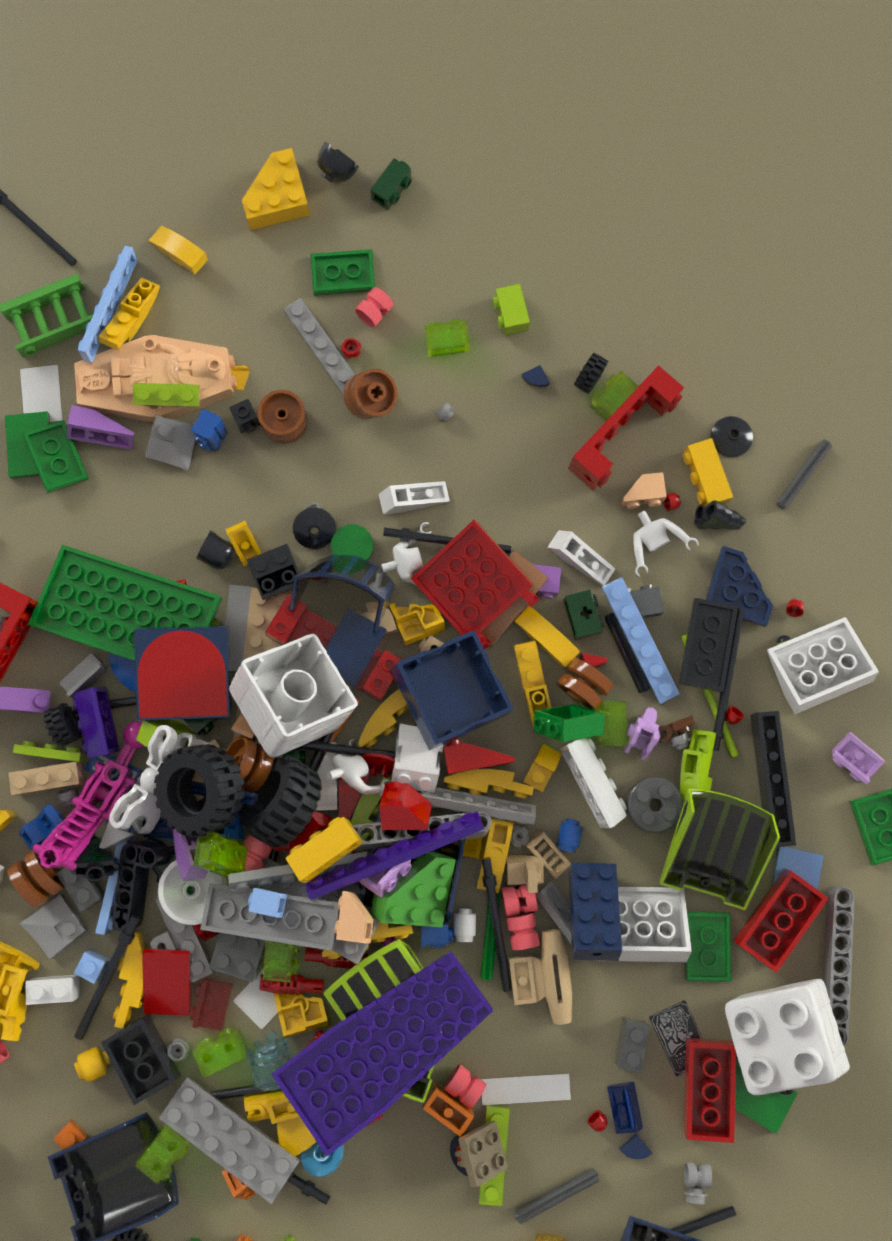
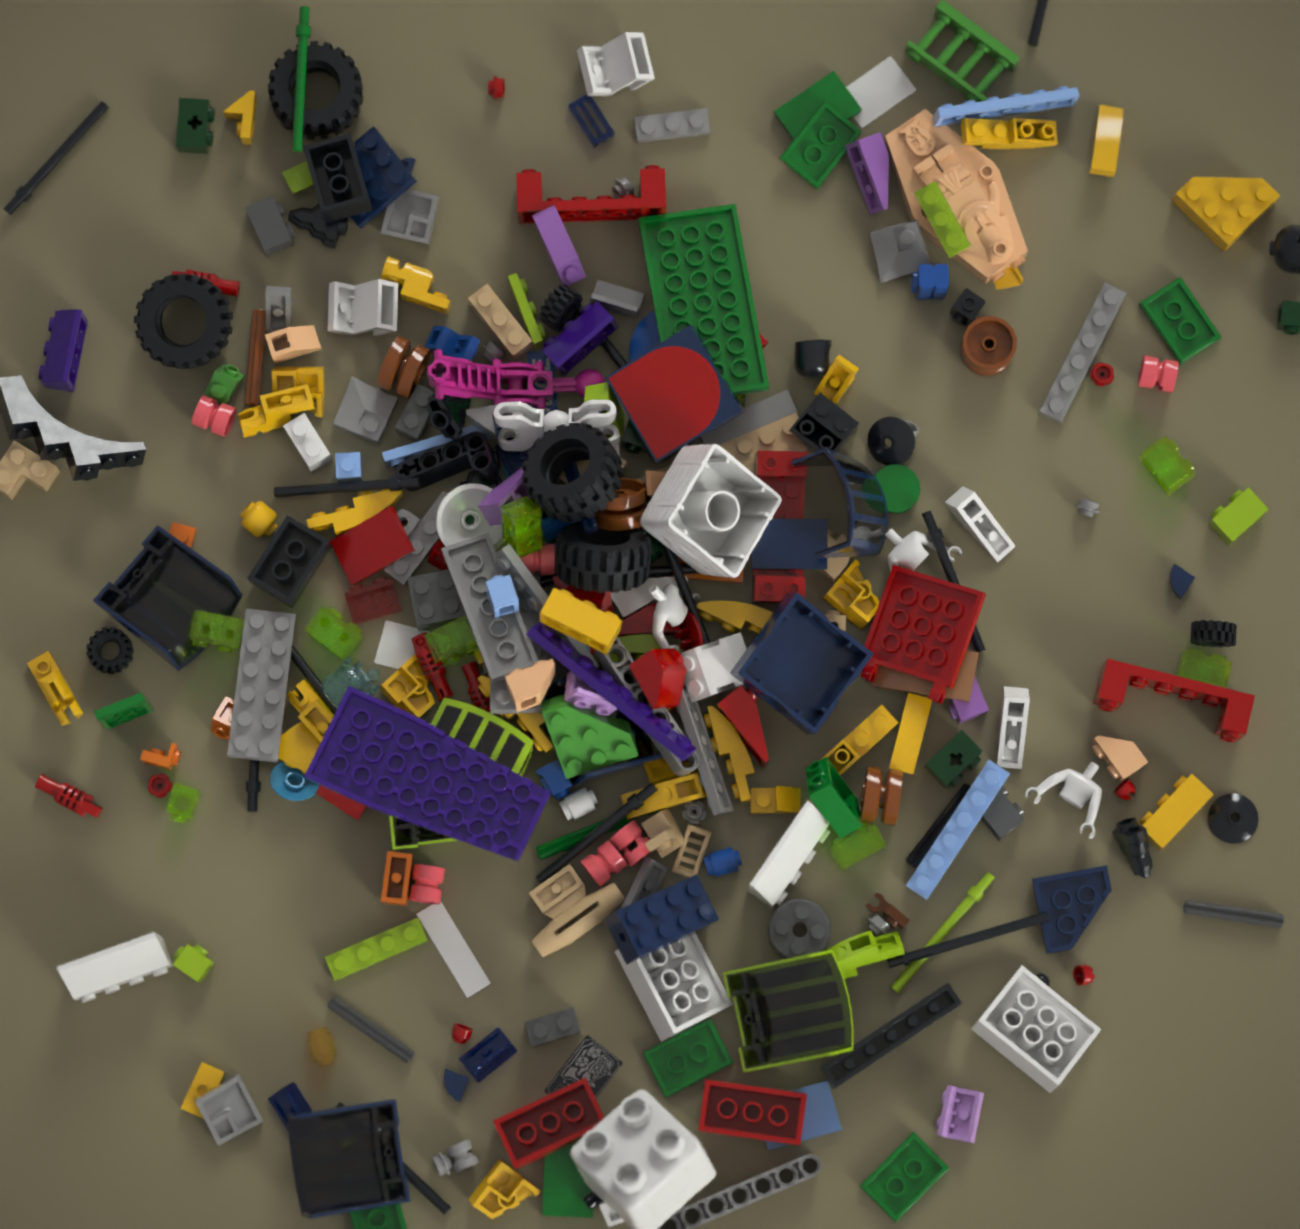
camera: 65 degrees right, 0 degrees up
(173, 1054) = (318, 597): light grey plate -> none
(370, 394) = (1065, 434): dark orange wheel -> none
(479, 1154) = (374, 928): dark tan plate -> none
(593, 660) = (910, 794): red slope -> none
(643, 733) = (865, 881): lavender hinge -> none
(708, 645) = (991, 900): black plate -> none
(734, 715) = (935, 966): red hinge -> none
(740, 1158) = (501, 1190): none -> yellow slope

